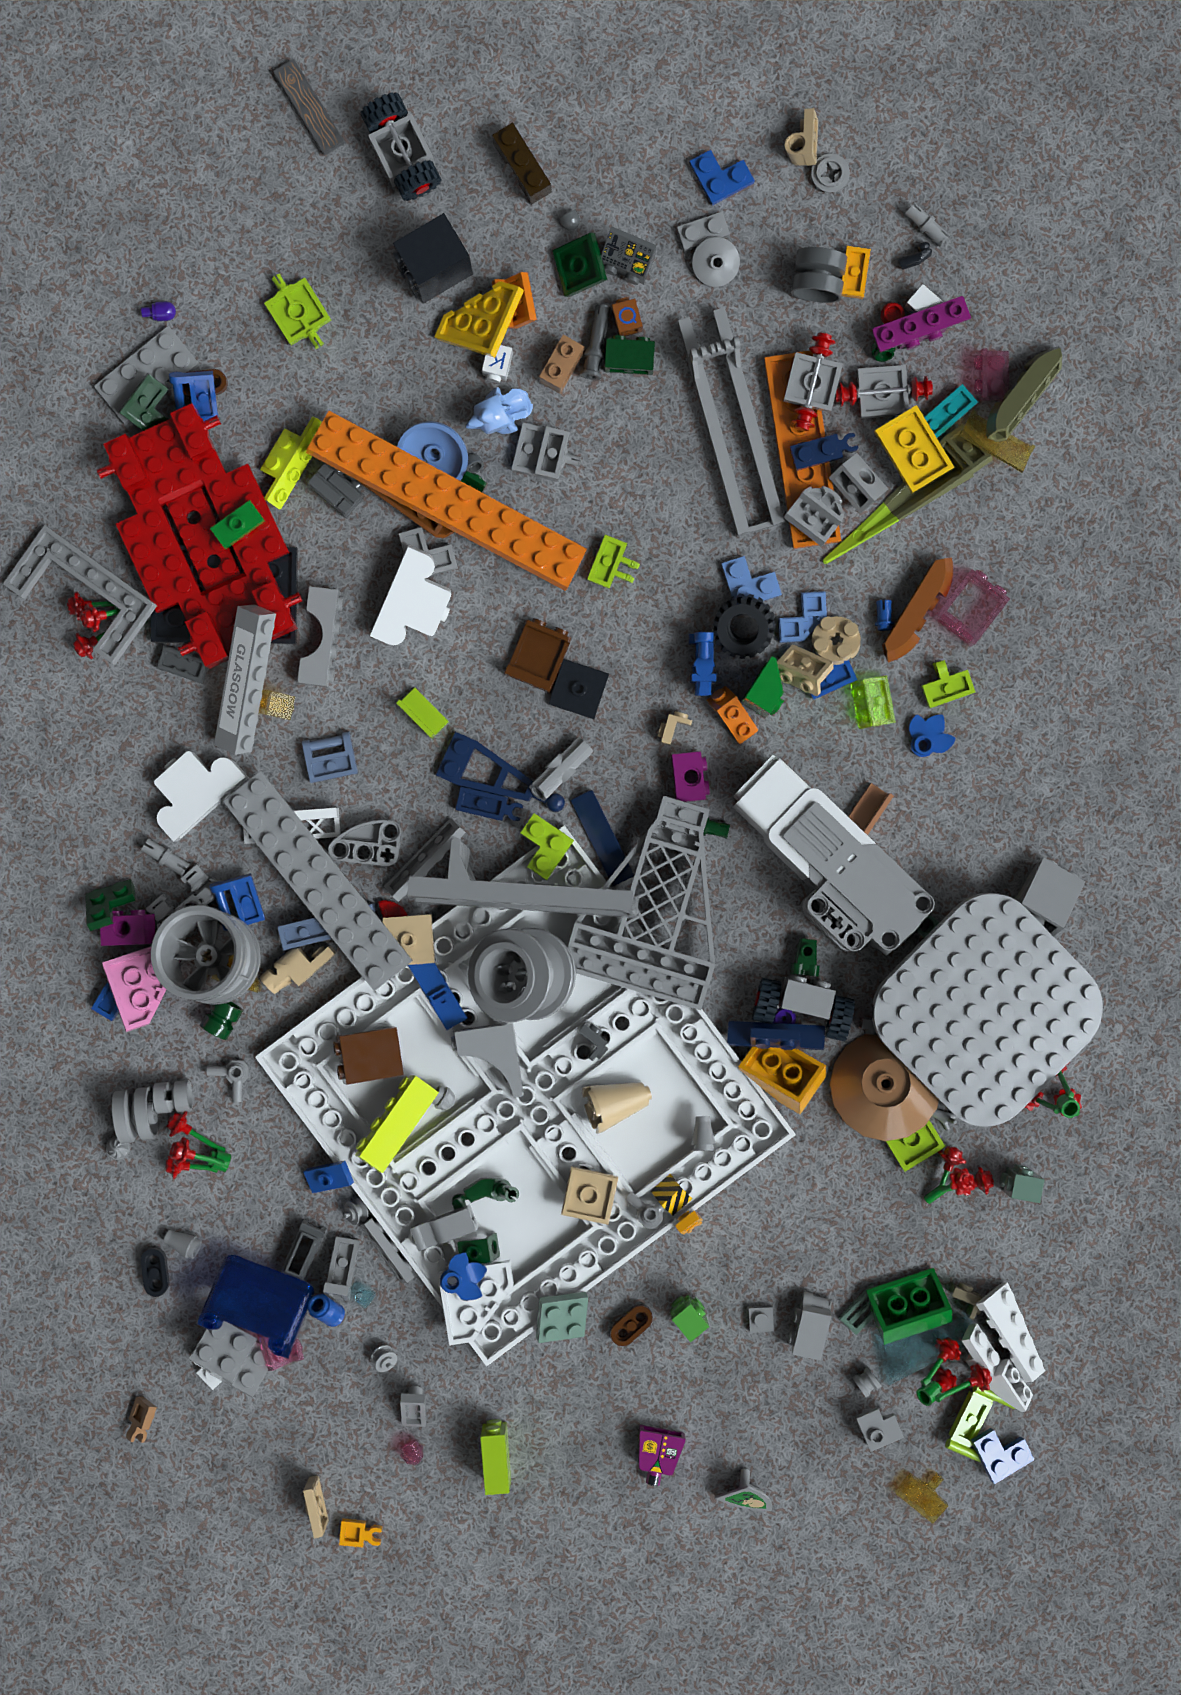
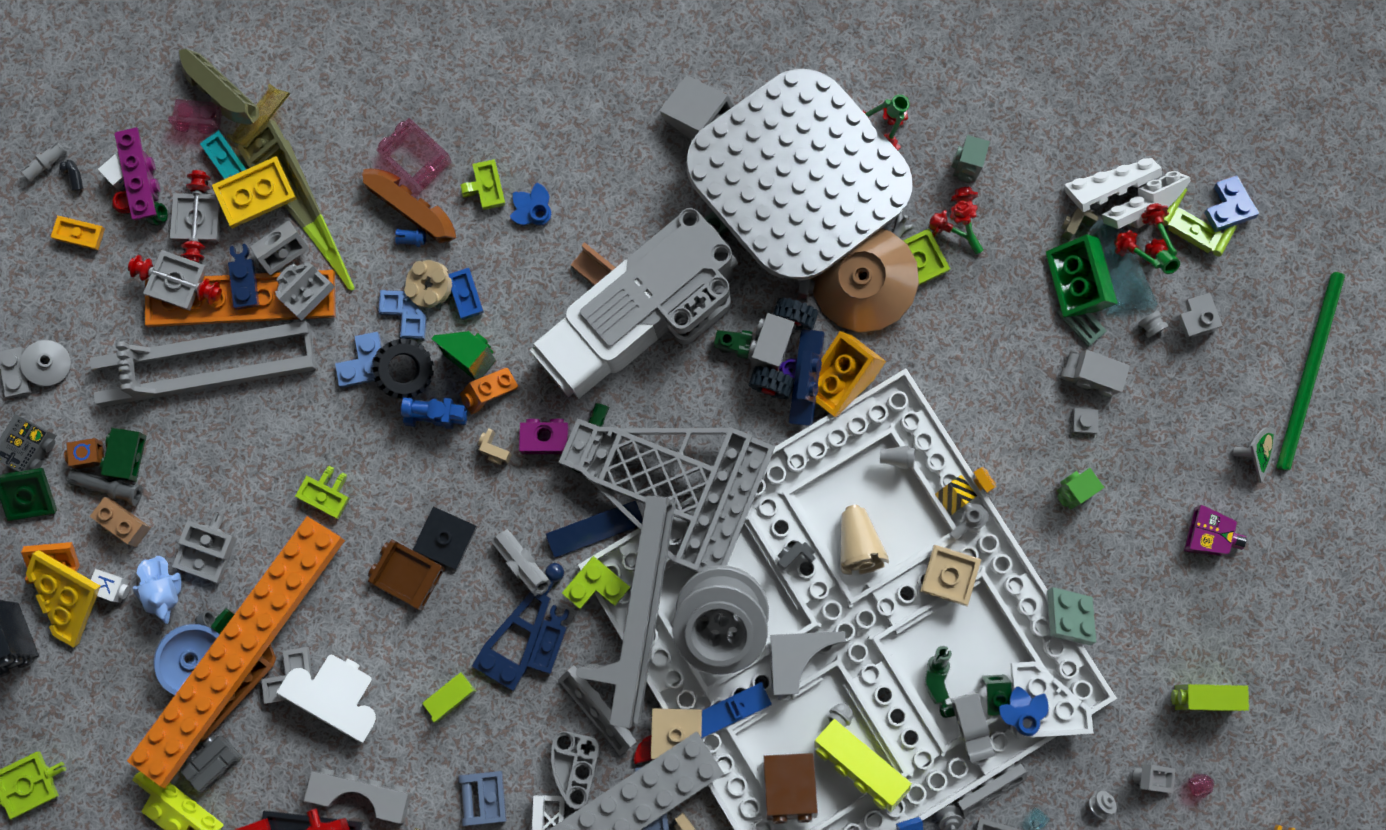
camera: 85 degrees left, 10 degrees down
(631, 1324) = (1084, 547): reddish brown plate -> none
(803, 669) = (453, 313): tan bracket -> none
(819, 274) = (72, 264): dark grey wheel -> none
(835, 1543) = (1310, 371): none -> green axle
(872, 702) = (492, 256): clear neon green bracket -> none
(923, 1496) = (1267, 282): clear yellow plate -> none

